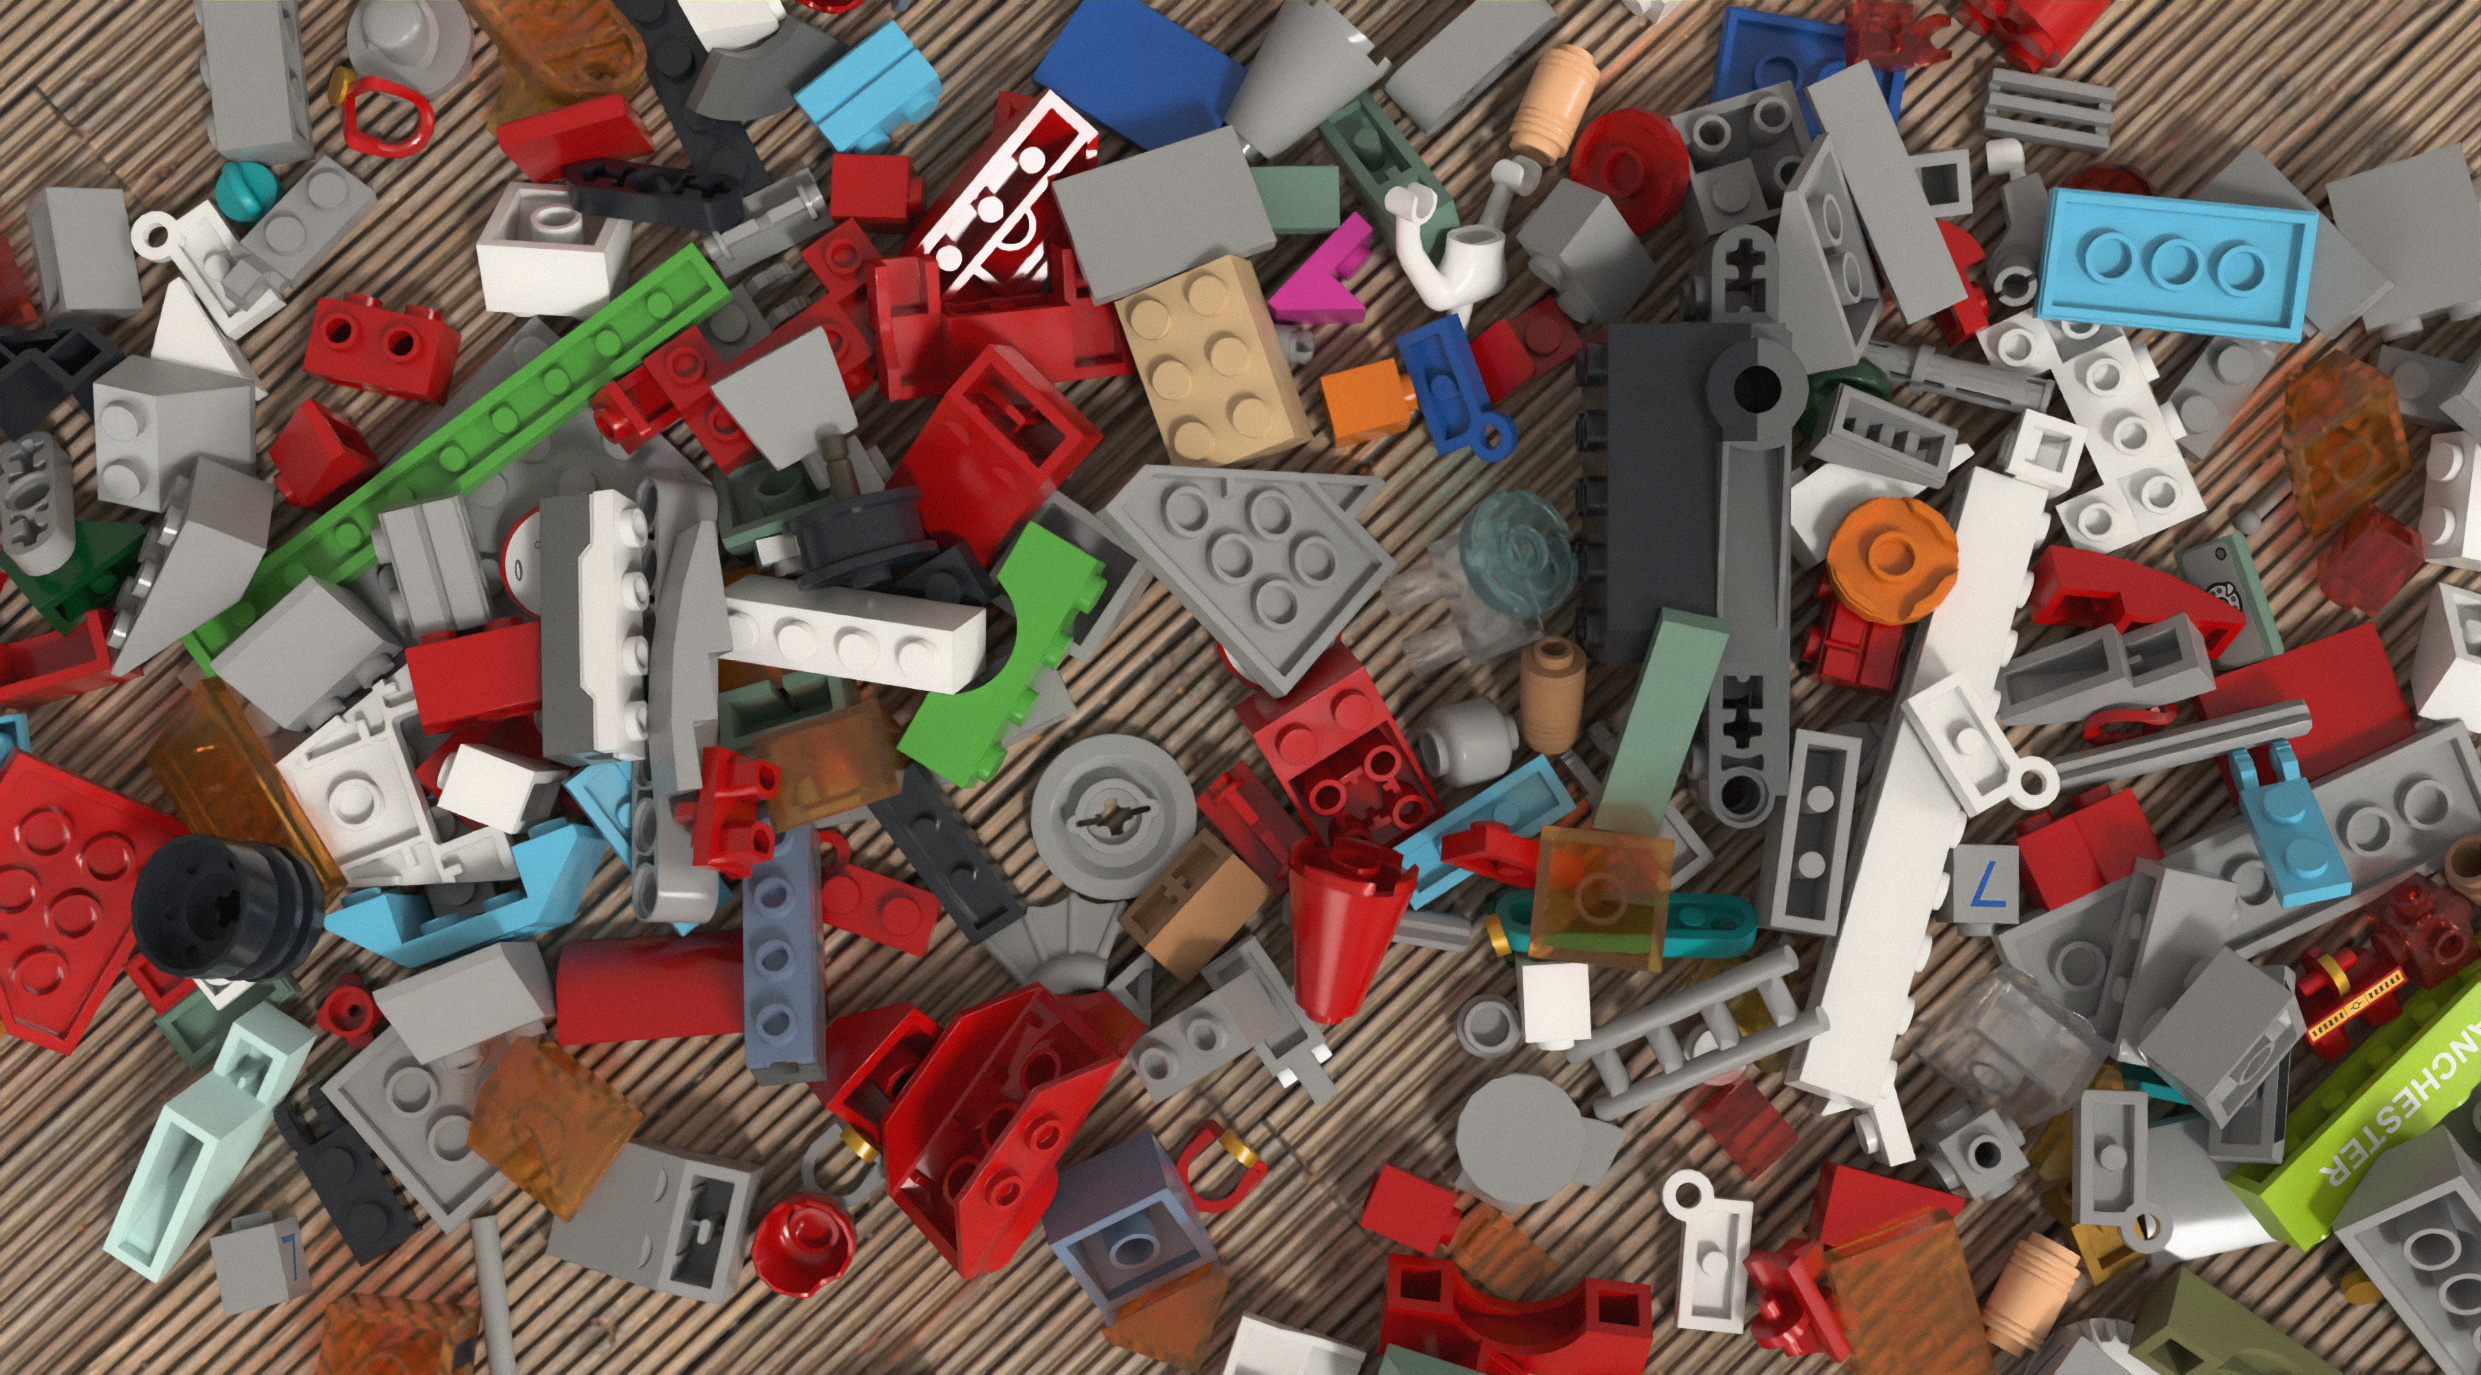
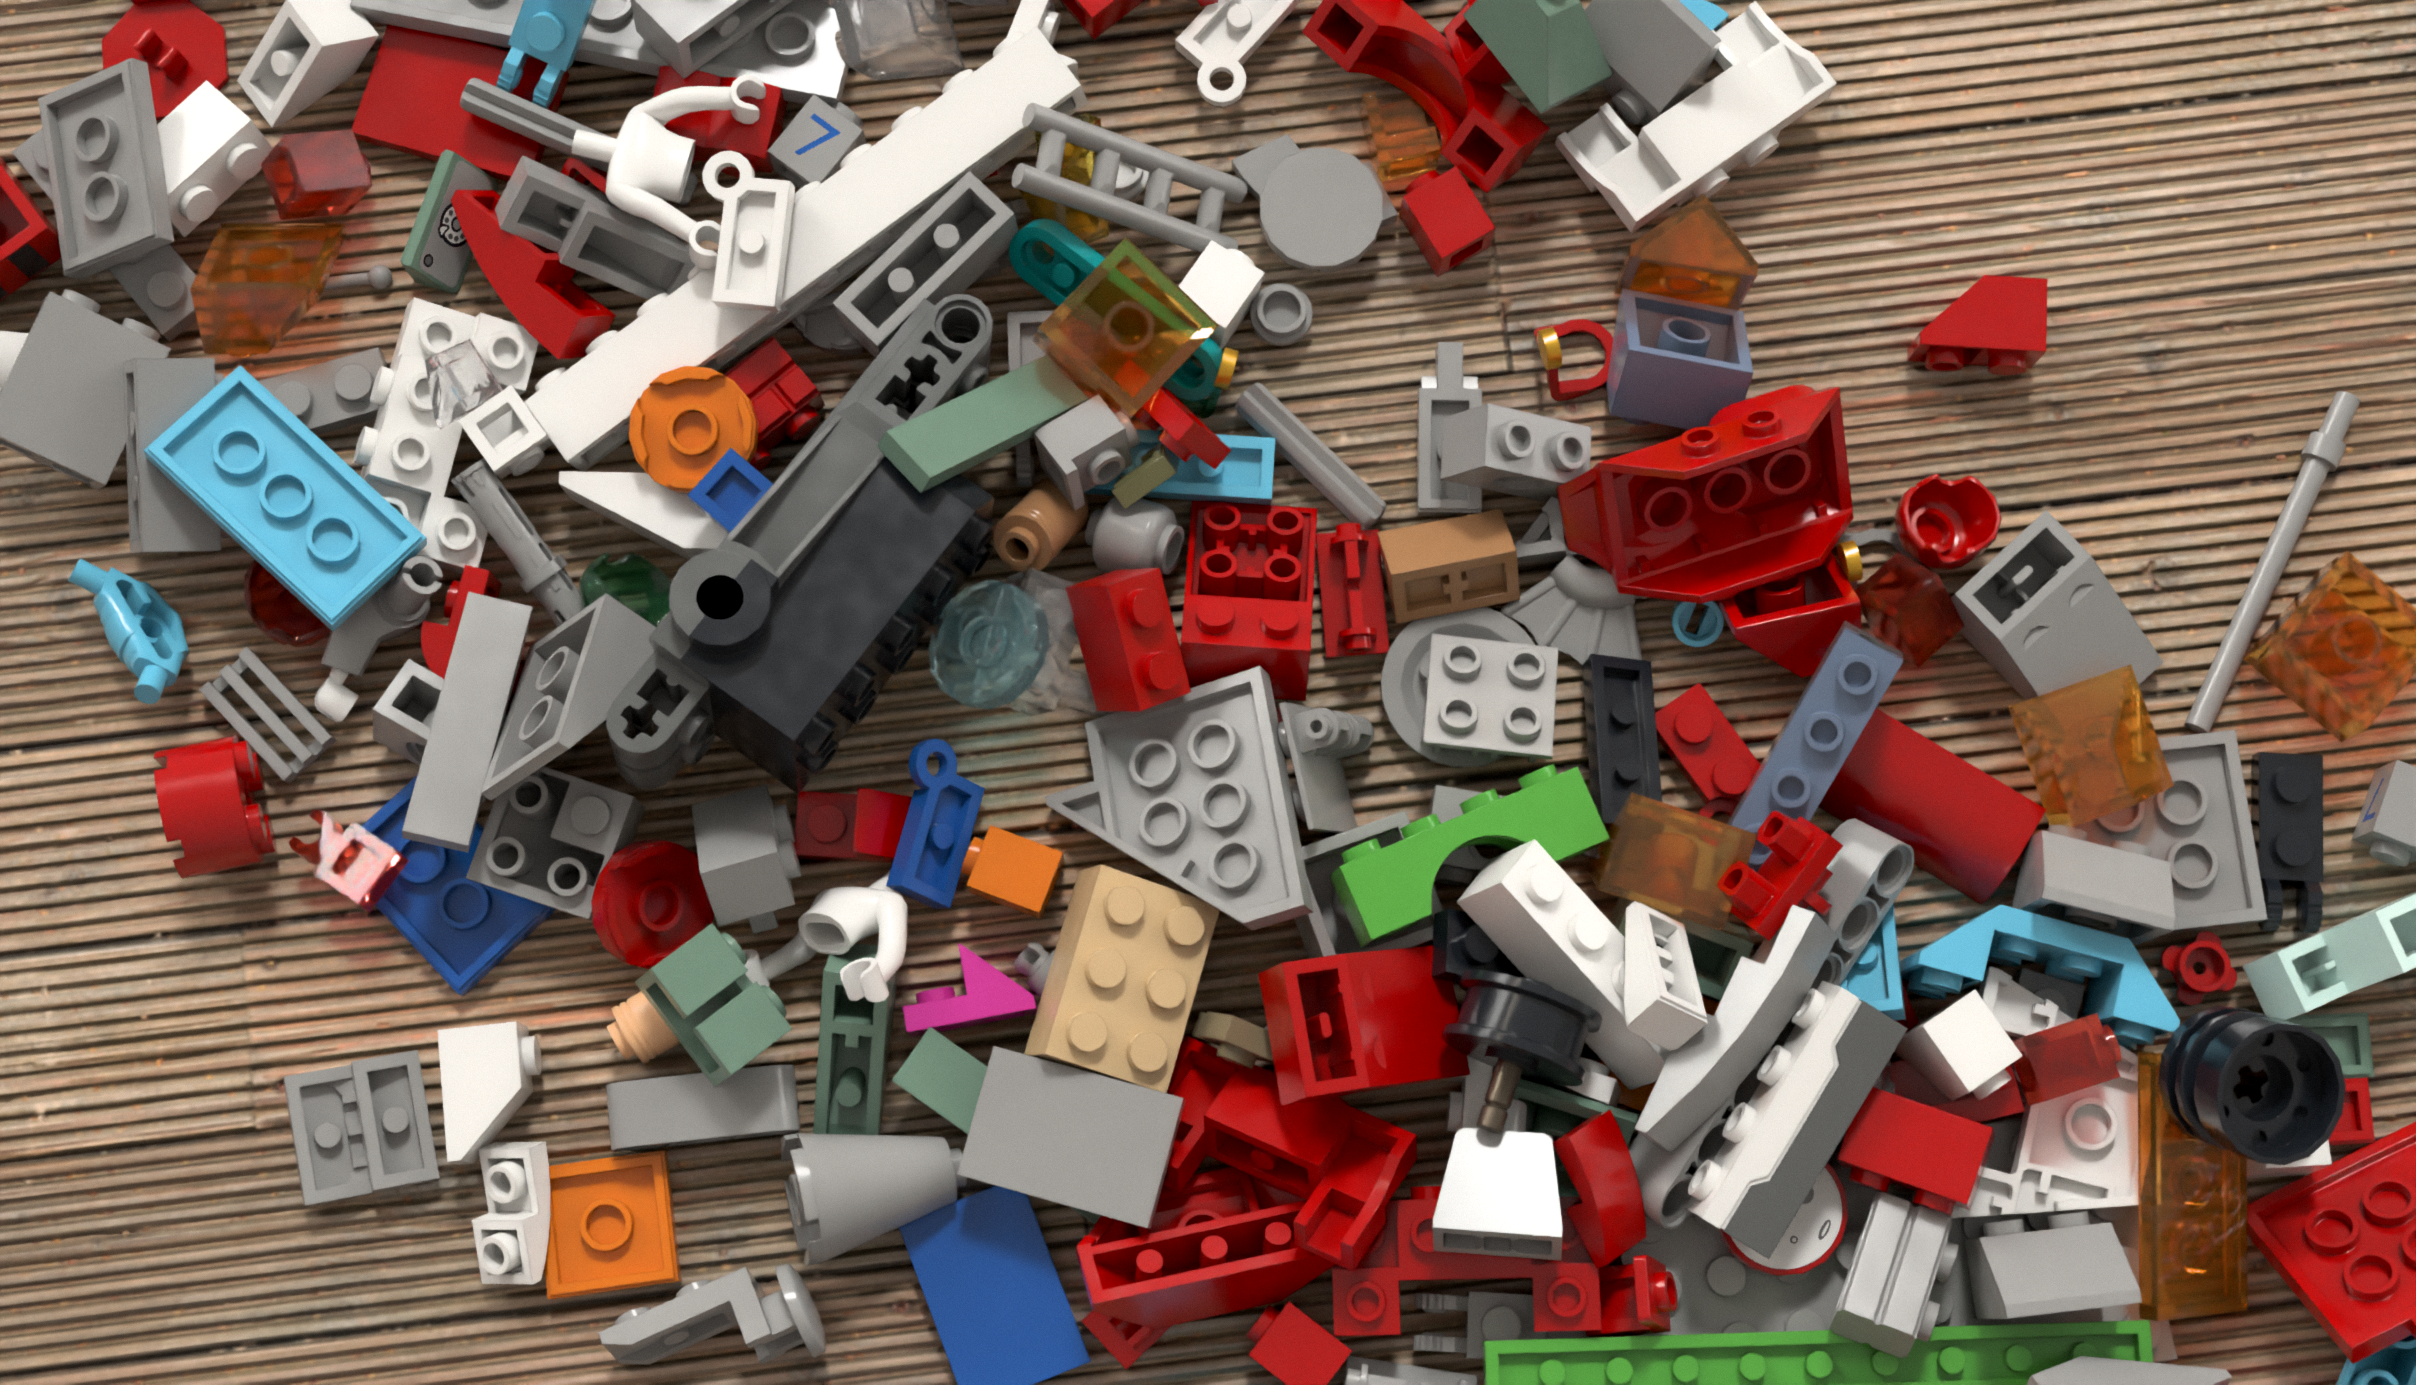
camera: 150 degrees left, 5 degrees down
(403, 835) = (2066, 1059): none -> clear red brick
(712, 471) = (1611, 1202): none -> red slope
(763, 620) = (1660, 983): none -> white slope
(785, 1140) = (1909, 608): none -> clear red brick
(943, 1003) = (1708, 628): none -> medium azure hinge
(1081, 814) = (1490, 697): none -> hinge
(1095, 387) = (1237, 1039): none -> dark tan plate
(1191, 663) = (1316, 744): none -> light grey hinge
(1343, 920) = (1337, 464): red cone -> none
(1408, 641) = (1128, 640): none -> red brick
(1493, 789) = (1157, 467): none -> olive tile
(1518, 117) = (714, 1004): none -> sand green piece
(1561, 777) = (1085, 448): none -> light grey brick
(1744, 1127) = (1141, 96): clear red panel -> none
(1821, 523) = (729, 490): none -> blue tile
(1855, 451) = (657, 540): light grey slope -> none
(2100, 765) = (654, 163): none -> white piece
(2113, 462) = (459, 382): none -> clear slope
(2202, 100) = (138, 627): none -> medium azure piece

